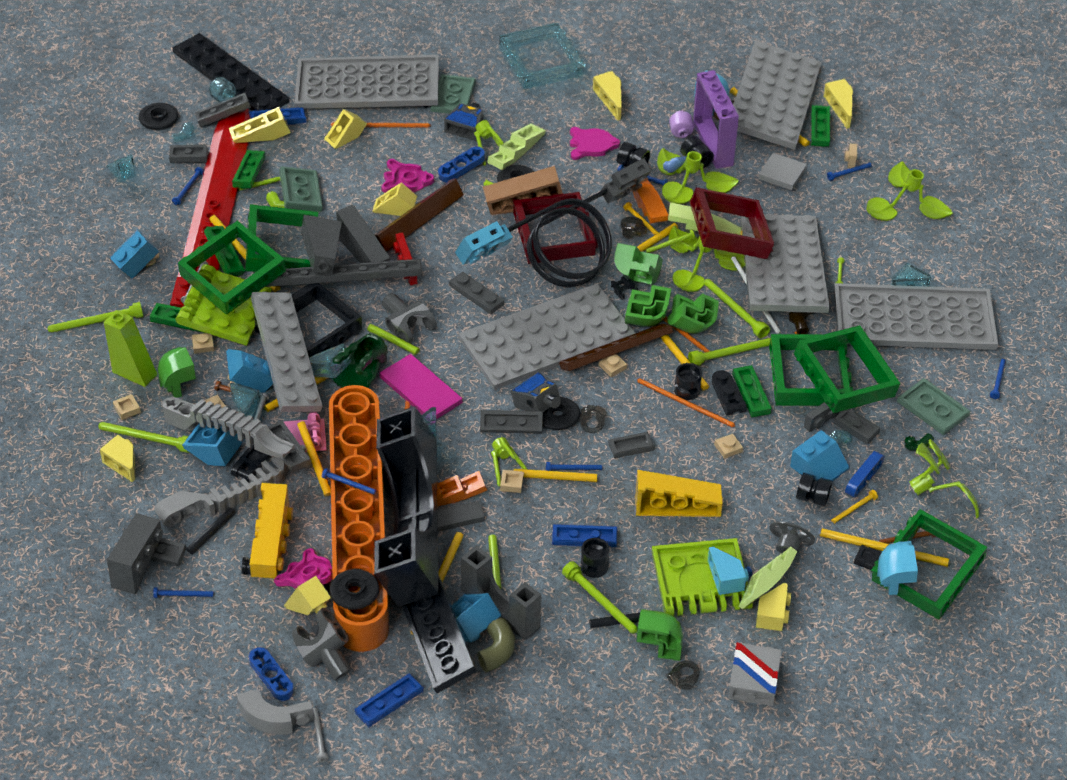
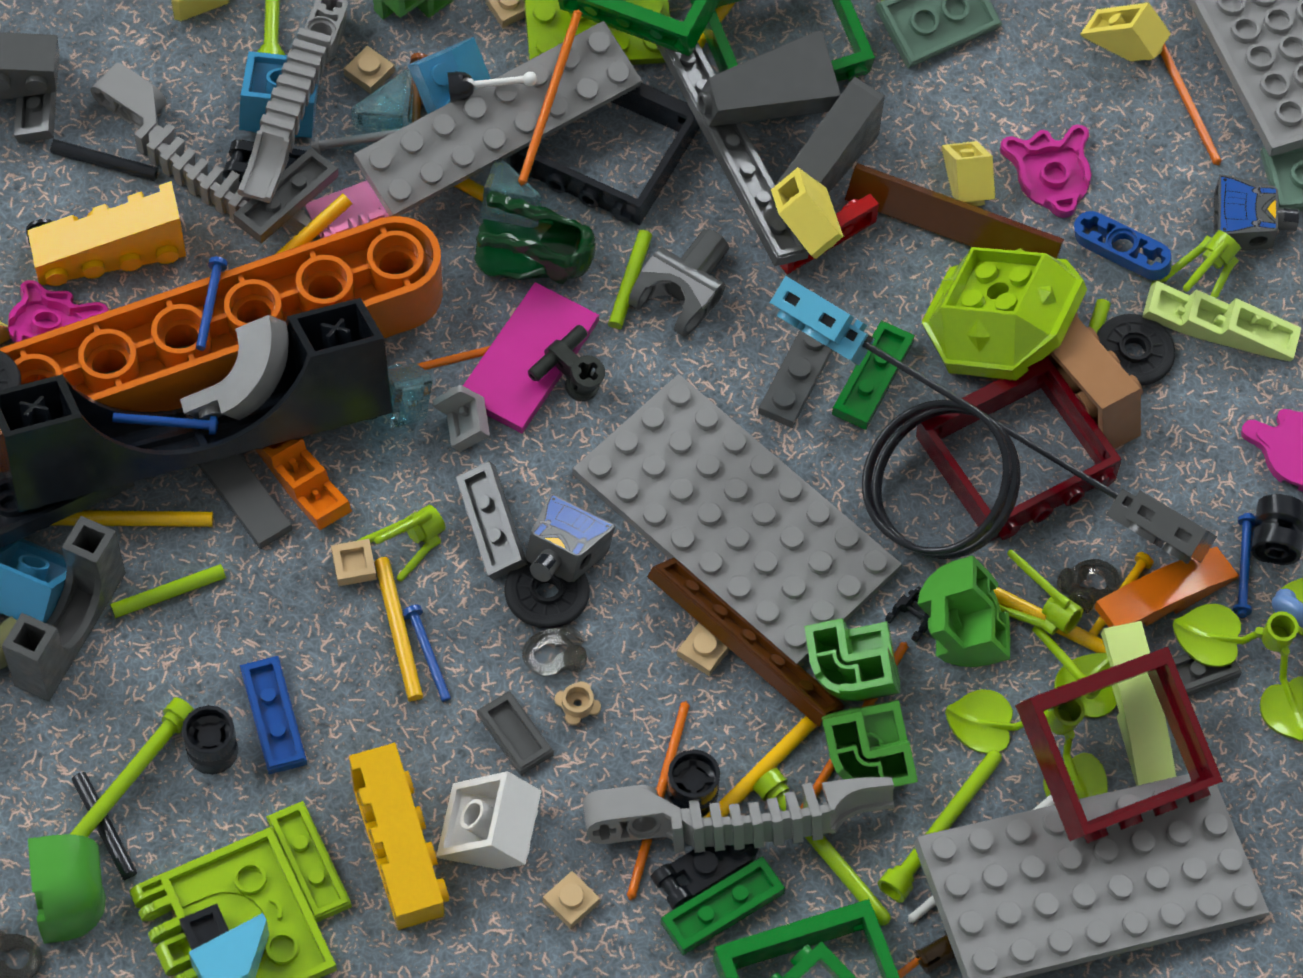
camera: 70 degrees right, 15 degrees up
(262, 350) = (462, 85): none -> hinge
(289, 322) = (549, 98): none -> orange axle
(403, 249) = (807, 211): none -> light yellow slope
(405, 472) = (253, 377): none -> light grey arch
(418, 504) = (211, 425): none -> blue piece
(439, 369) = (573, 367): none -> pearl dark grey piece
(449, 416) = (465, 416): none -> light grey bracket
(483, 200) = (1002, 311): none -> lime piece
(496, 270) = (872, 377): none -> green plate
(624, 416) = (577, 692): none -> tan plate
(647, 234) = (1059, 610): none -> lime plant
(651, 539) = (309, 861): none -> lime tile
(679, 459) = (490, 821): none -> white slope
(696, 403) = (641, 814): none -> light grey piece
(703, 582) = (203, 926): none -> black tile

